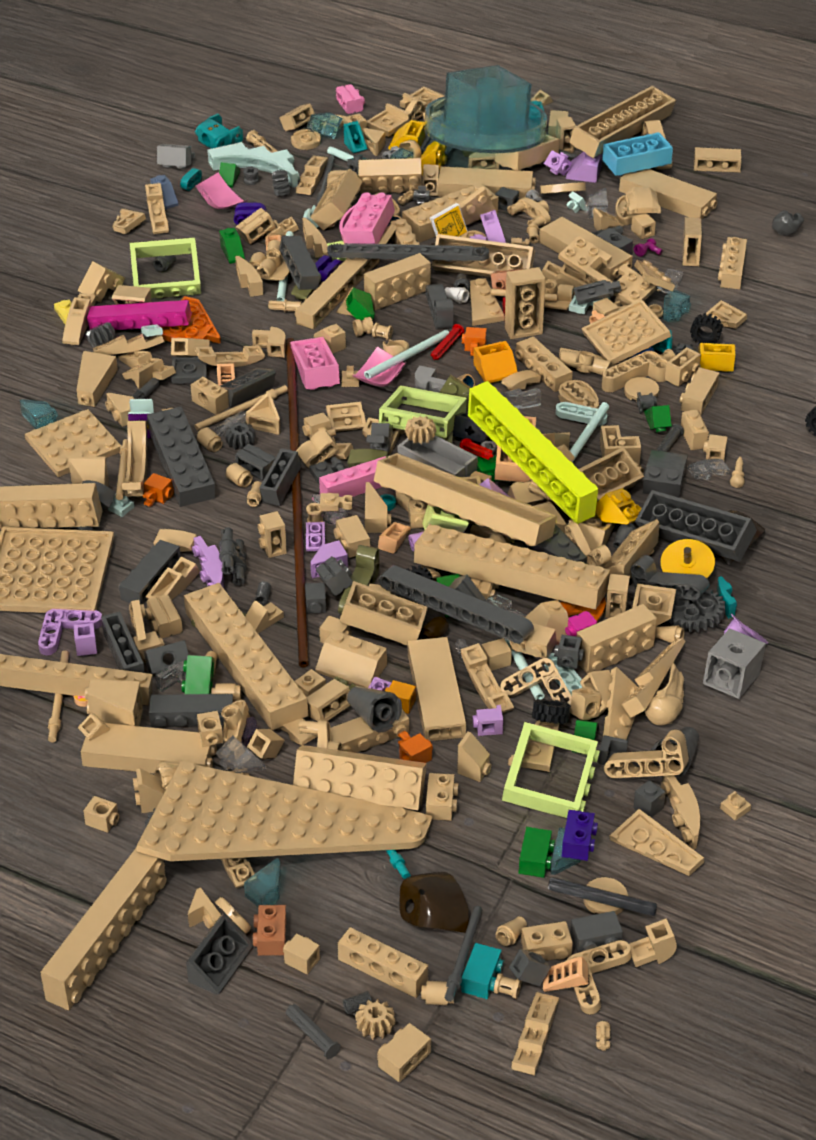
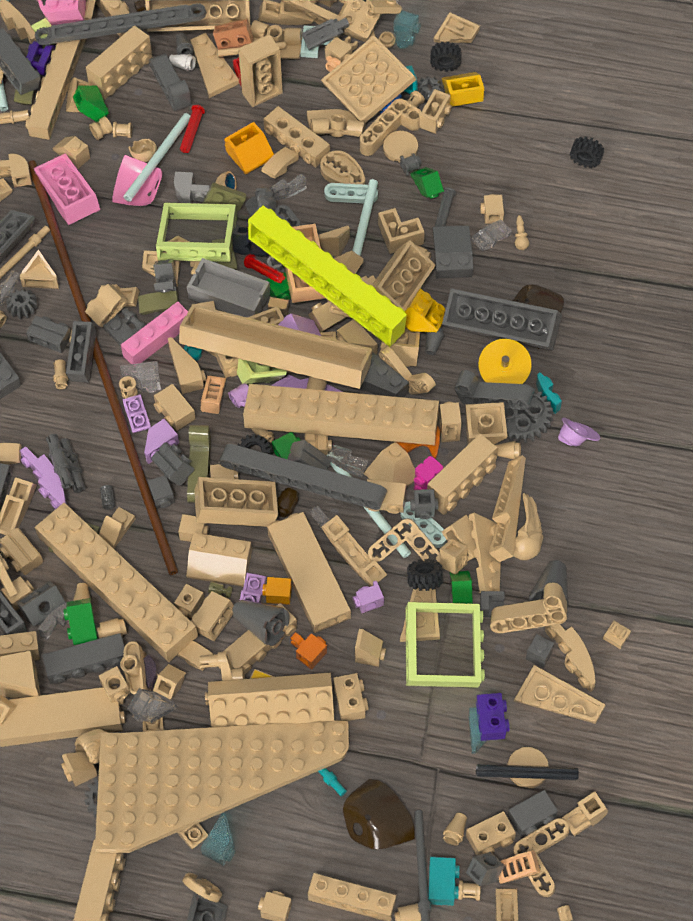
camera: 15 degrees left, 20 degrees up
(101, 814) = (34, 796): tan brick -> none
(202, 910) = (171, 883): tan slope -> none
(239, 475) = (37, 355): tan brick -> none
(271, 929) = (240, 889): nougat brick -> none
(272, 534) = (96, 427): tan brick -> none
(317, 422) = (97, 274): tan brick -> none
(333, 502) = (143, 373): tan plate -> none
(346, 416) = (119, 252): tan slope -> none
(348, 379) = (105, 198): tan tile -> none
(420, 430) = (205, 265): tan gear -> none
(474, 338) = (219, 121): orange brick -> none
(497, 654) = (353, 516): tan brick -> none
(535, 852) = (453, 737): green brick -> none
(638, 543) = (448, 365): tan slope -> none
(694, 429) = (466, 190): tan brick -> none
(699, 390) = (458, 137): tan brick -> none
(734, 663) = (578, 476): light grey brick -> none

